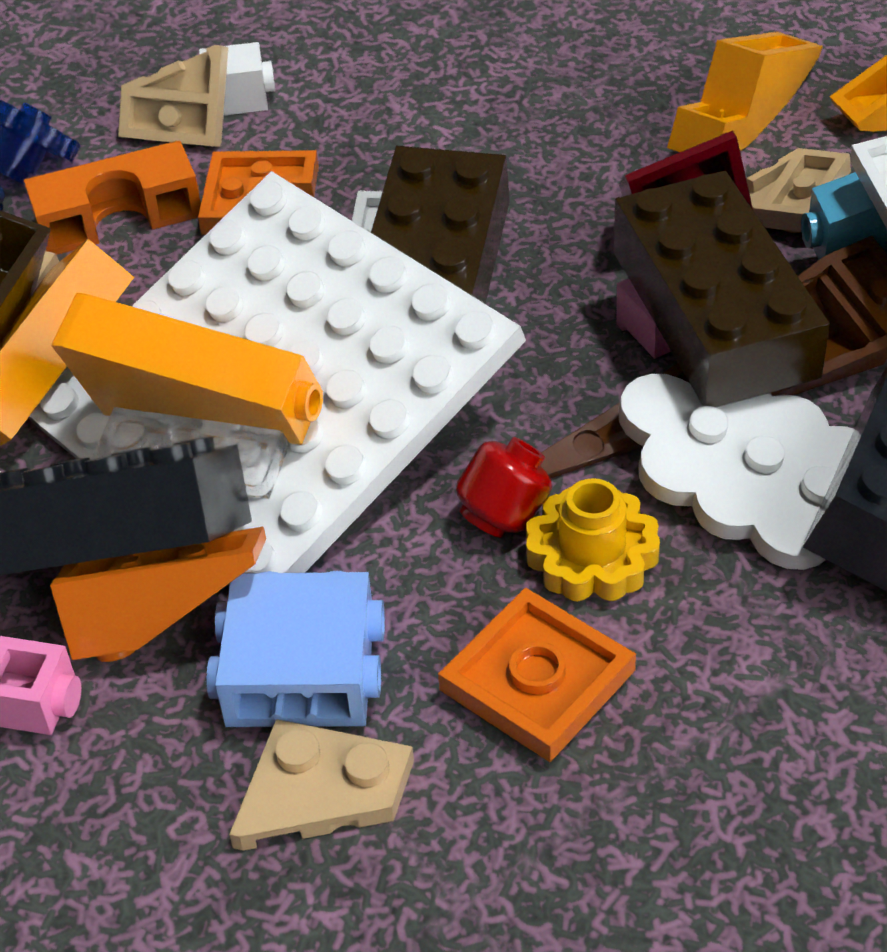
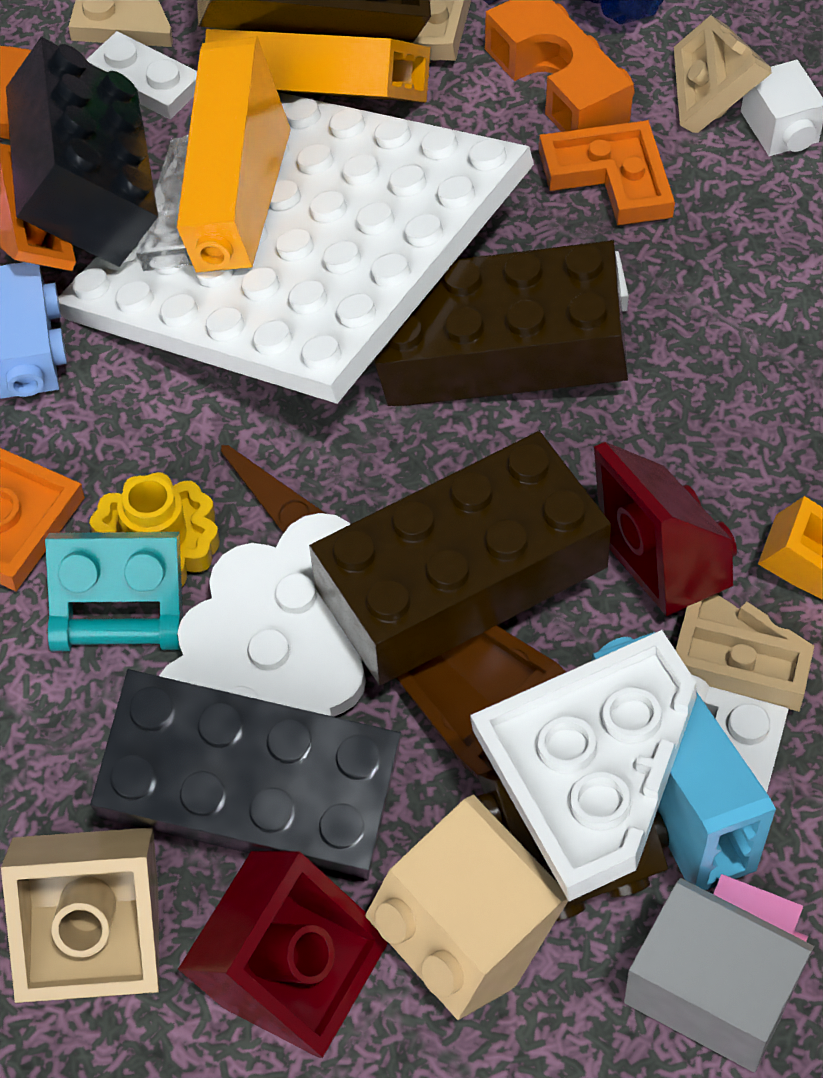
camera: 75 degrees right, 10 degrees up
(503, 486) = (195, 442): red head -> none
(654, 562) = (113, 570): none -> plate

